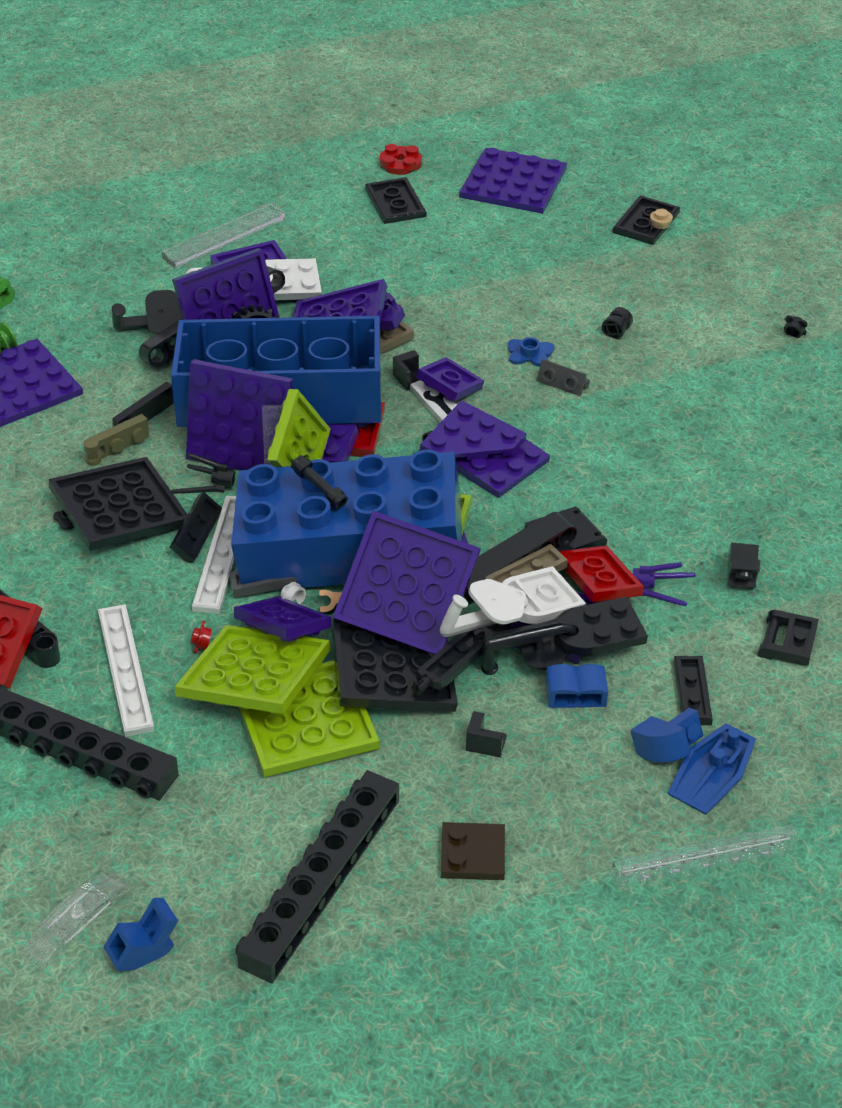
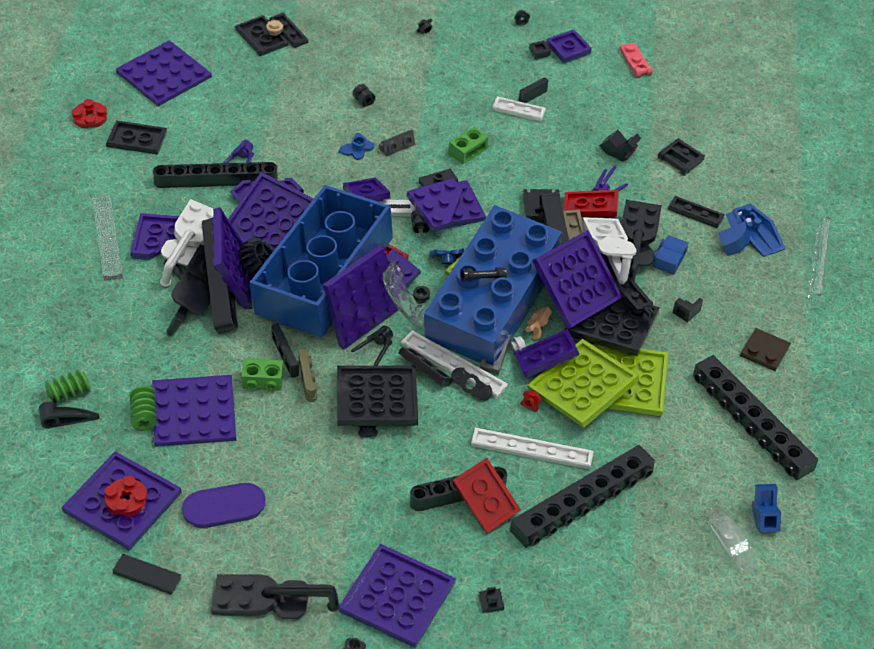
camera: 65 degrees left, 5 degrees up
(93, 407) = (262, 374): none -> bright green brick
(187, 589) = (480, 390): none -> black piece
(298, 432) = (415, 277): lime plate -> none
(380, 265) = (210, 174): none -> black beam
(440, 272) = (243, 150): none -> dark purple plant
(536, 434) = (437, 177): none -> black plate
(611, 433) = (468, 145): none -> bright green brick
(676, 234) = (290, 31): none -> black tile
(730, 457) = (518, 109): none -> white tile
(771, 454) = (533, 90): none -> black tile

